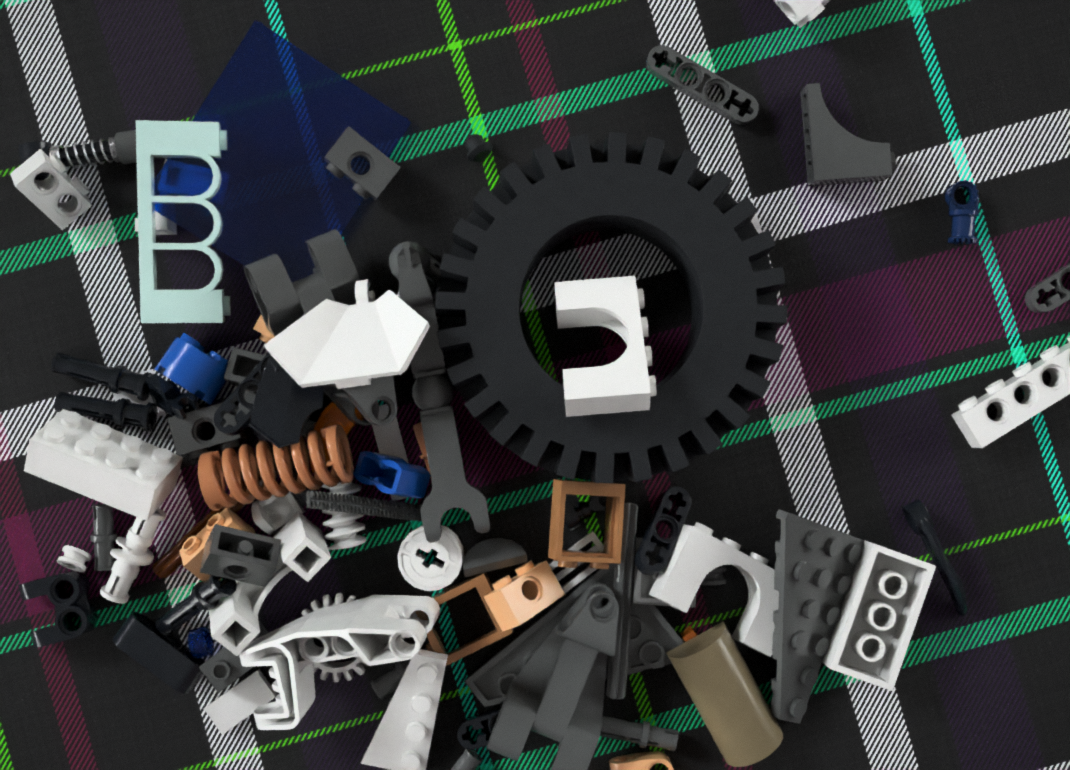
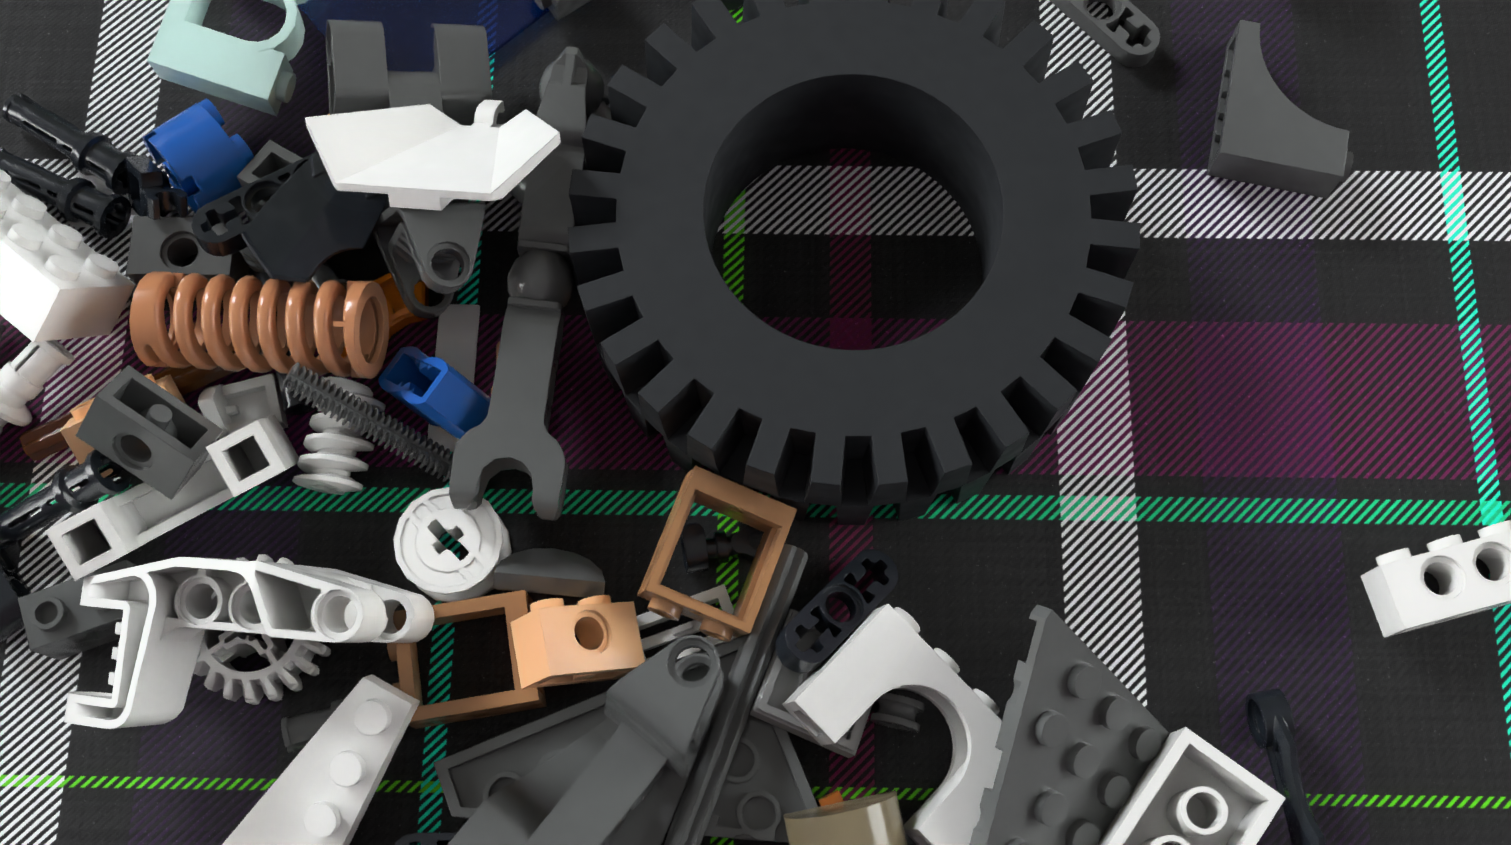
camera: 20 degrees right, 15 degrees down
(200, 642) = (41, 570): clear blue axle -> none
(240, 701) = (40, 695): white tile -> none
(620, 384) = (824, 311): white arch -> none
(963, 215) = (1442, 273): dark blue connector -> none

